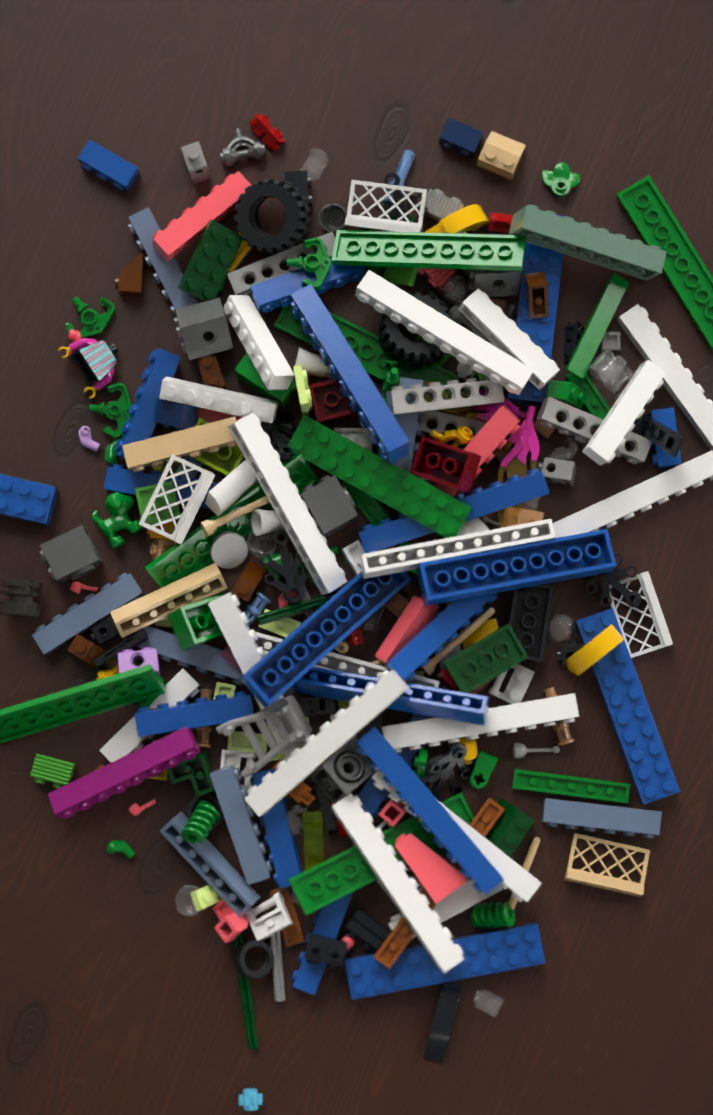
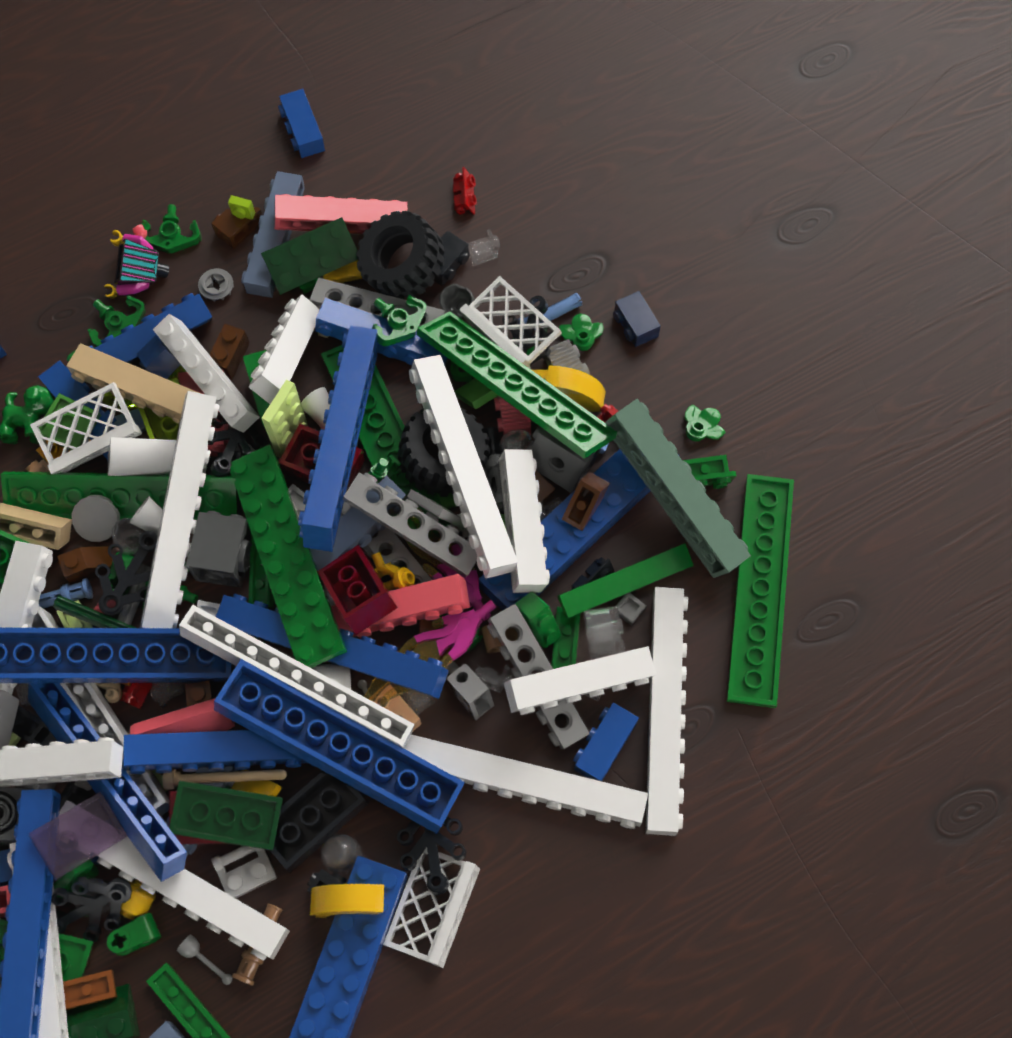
camera: 40 degrees right, 15 degrees down
(86, 439) = (69, 329): lavender arm -> none
(133, 265) = (241, 207): none -> lime plate
(154, 323) = (221, 277): none -> light grey gear
(195, 161) = (377, 163): light grey torso -> none
(203, 329) = (250, 305): dark grey brick -> none
(210, 526) = (92, 477): tan piece -> none
(254, 149) = (416, 188): dark grey piece -> none
(413, 739) = (77, 835): none -> clear purple tile
(428, 172) = (582, 331): none -> green plate
(449, 374) = (436, 509): none -> light grey tile
(501, 155) = (662, 360): tan slope -> none
(593, 211) = (712, 471): none -> green bracket
(659, 434) = (598, 725): black slope -> none

